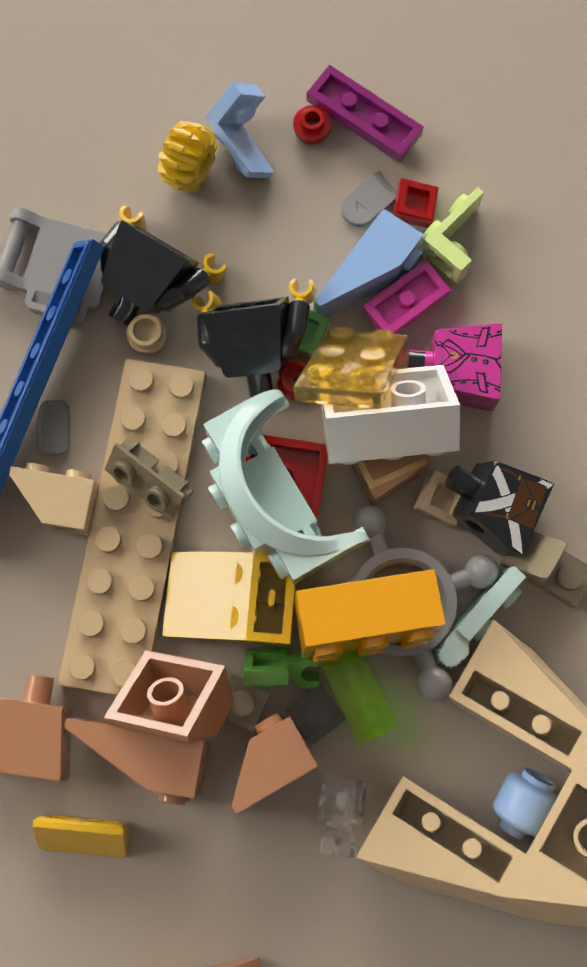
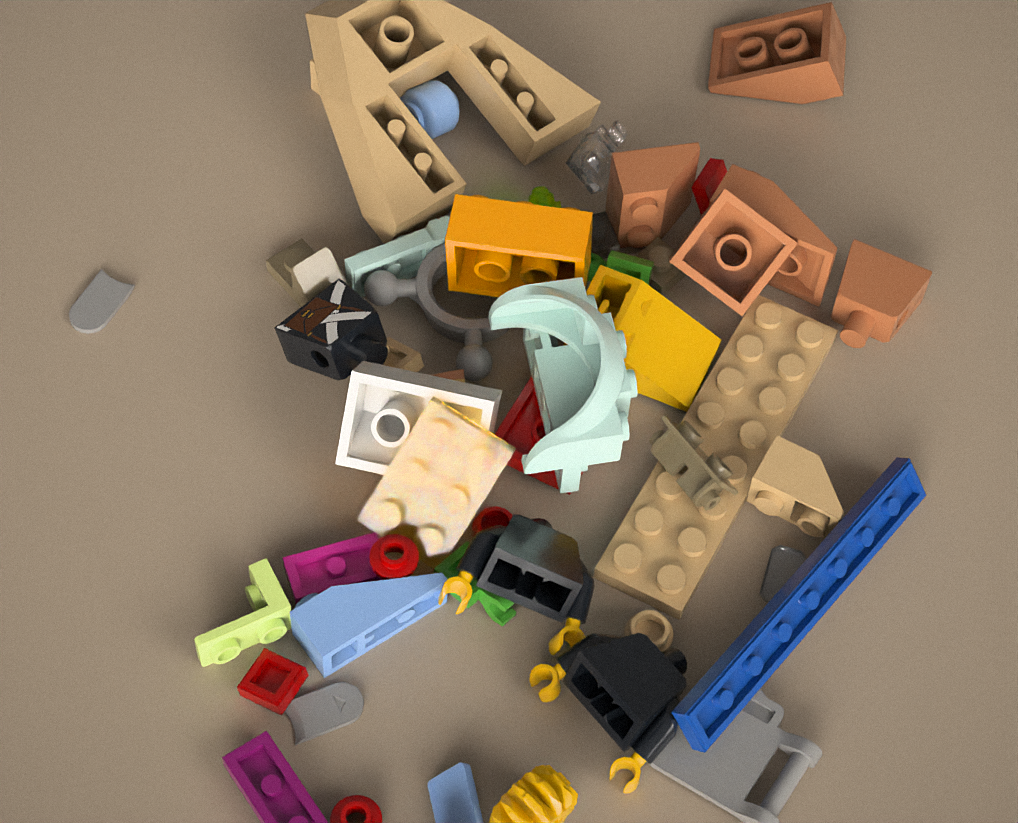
camera: 165 degrees left, 20 degrees down
(82, 835) = (842, 214): yellow slope -> none
(216, 809) = (708, 182): none -> red tile
(359, 318) = (399, 568): none -> red plate
(470, 360) = (303, 482): dark pink torso -> none

